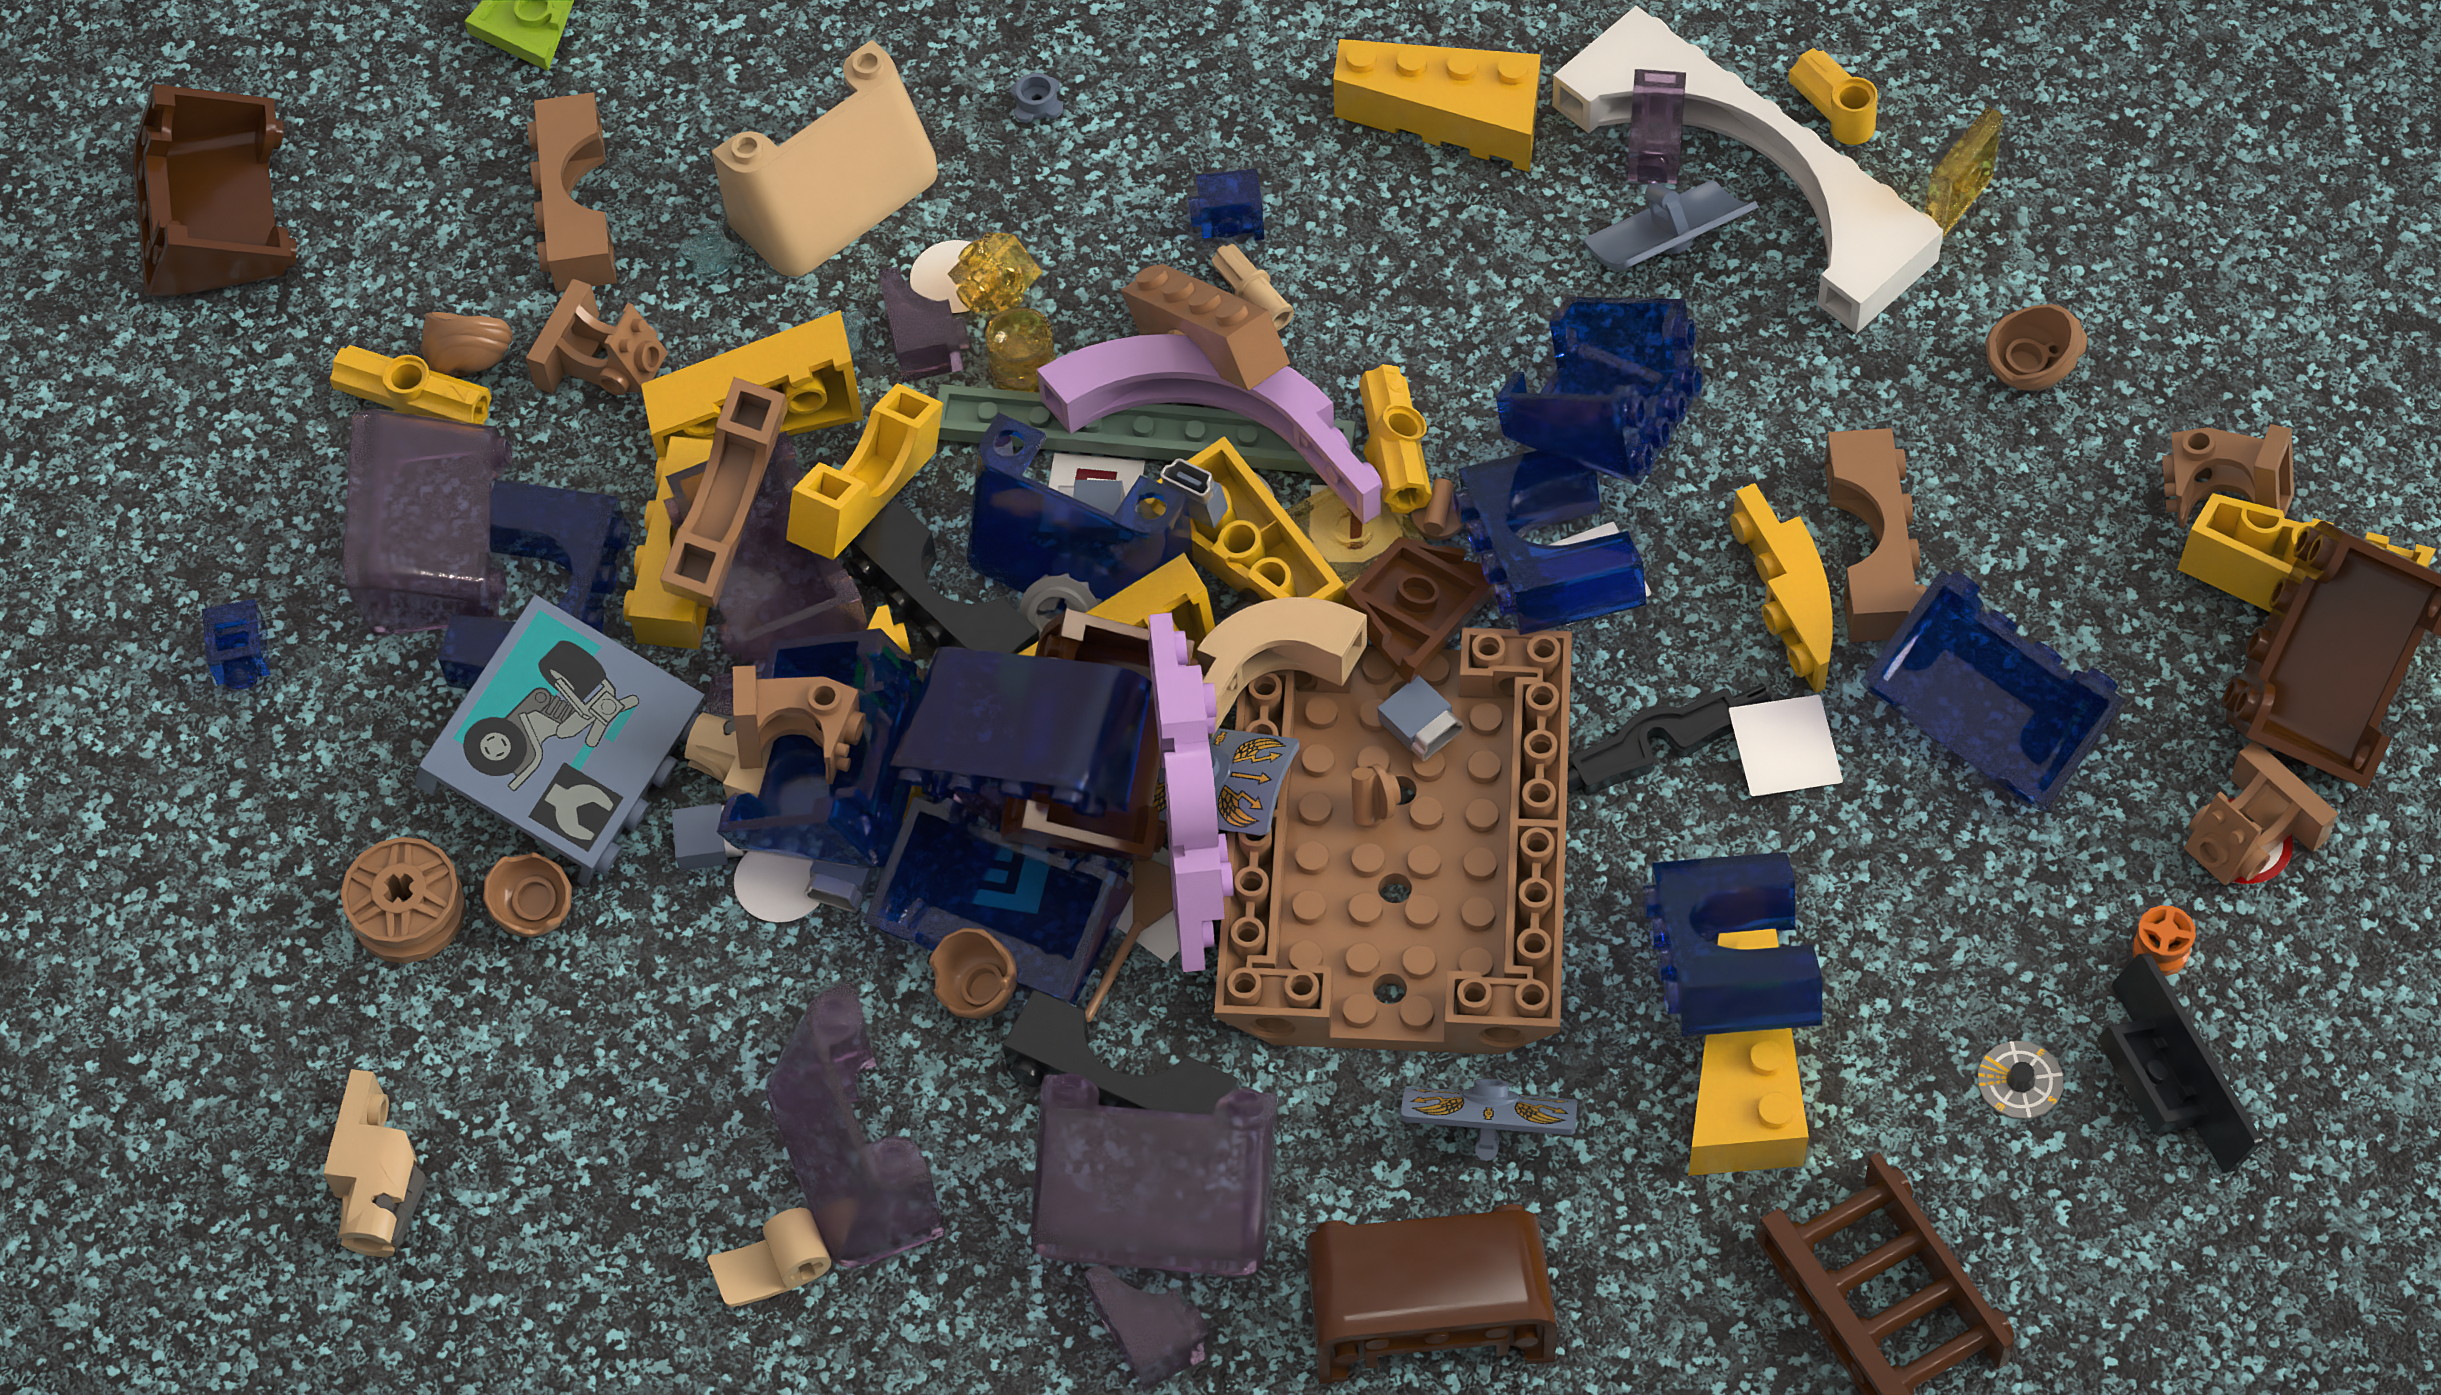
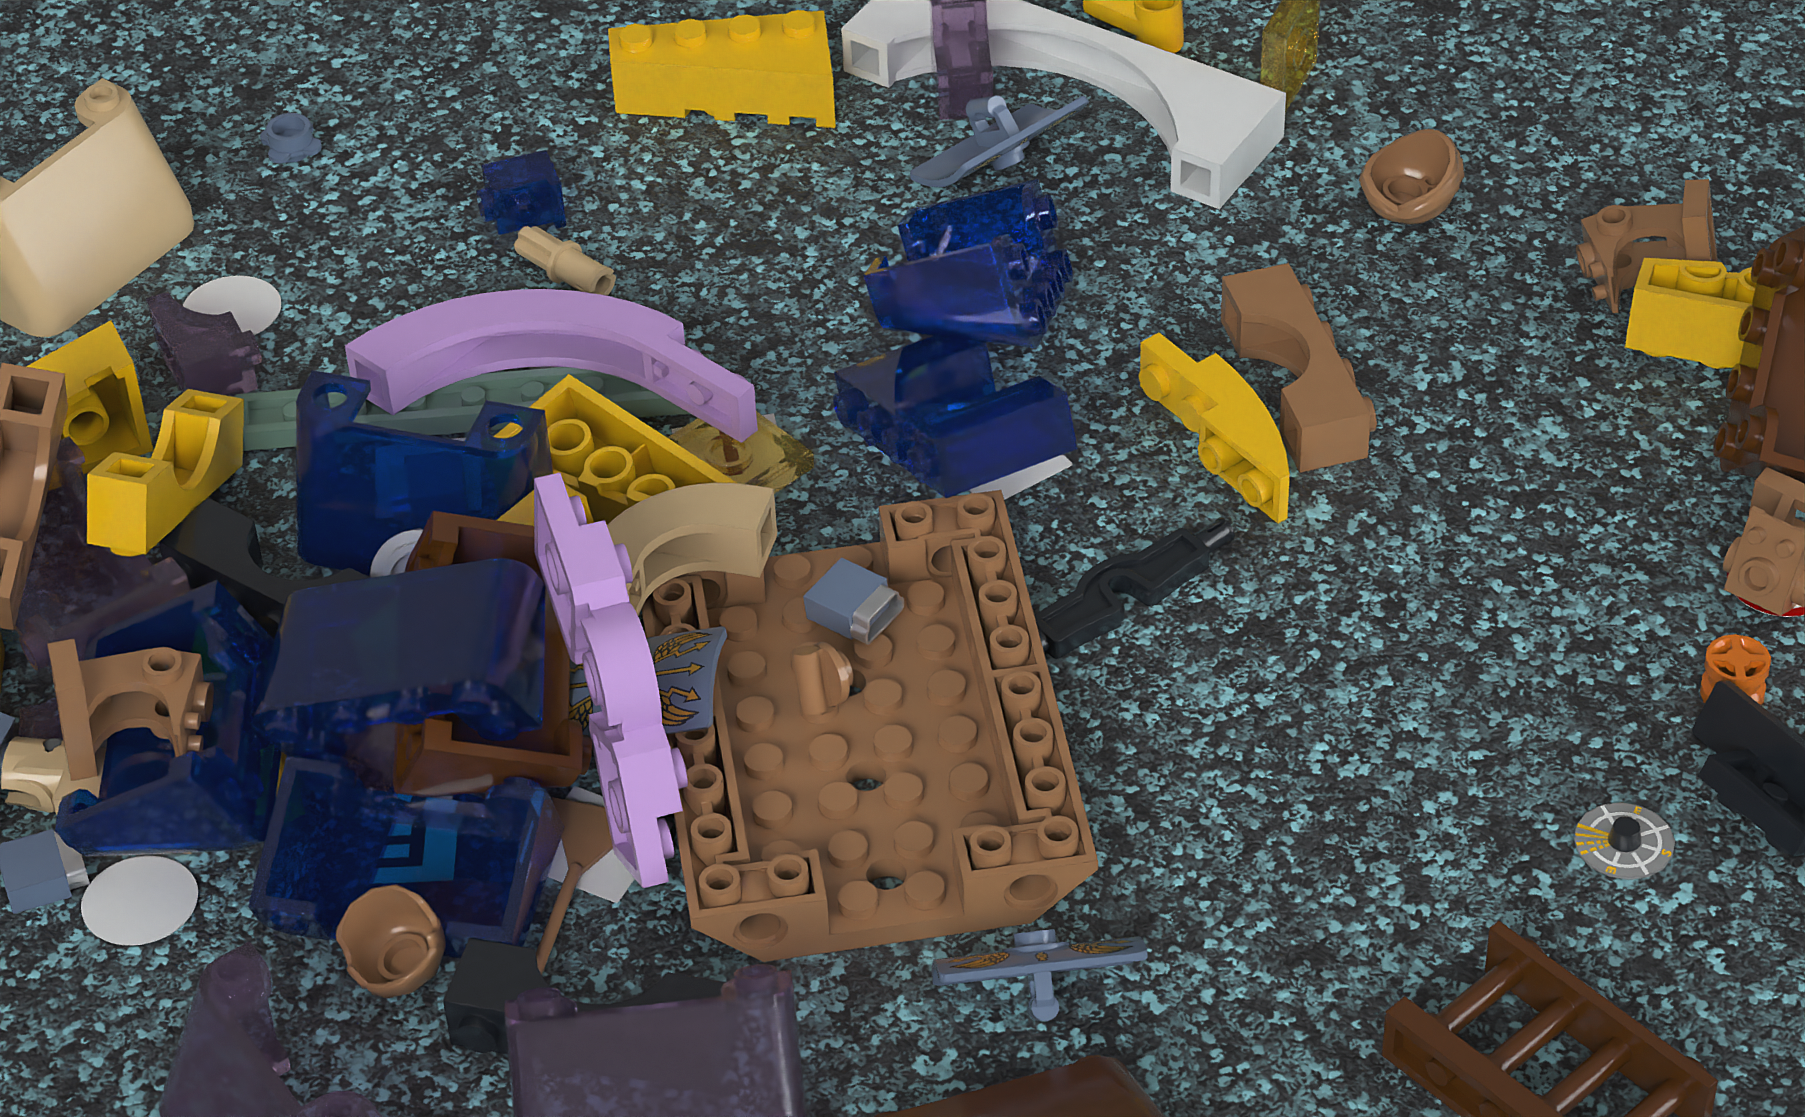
camera: 15 degrees left, 15 degrees down
(838, 885) = (211, 882): piece -> none
(993, 273) = (276, 286): clear yellow brick -> none
(1018, 345) = (316, 338): clear yellow wheel -> none
(1205, 495) = (563, 416): piece -> none
(1228, 329) = (560, 269): medium nougat arch -> none
(1395, 439) = (759, 357): yellow piece -> none
(1417, 601) = (827, 495): reddish brown wing -> none
(1439, 517) = (818, 424): medium nougat plate -> none
(1721, 986) = (1268, 747): clear blue arch -> none
(1749, 1094) = (1324, 877): yellow wedge -> none
(1785, 745) = (1262, 571): white sticker -> none
(1991, 691) = (1470, 474): clear blue windscreen -> none

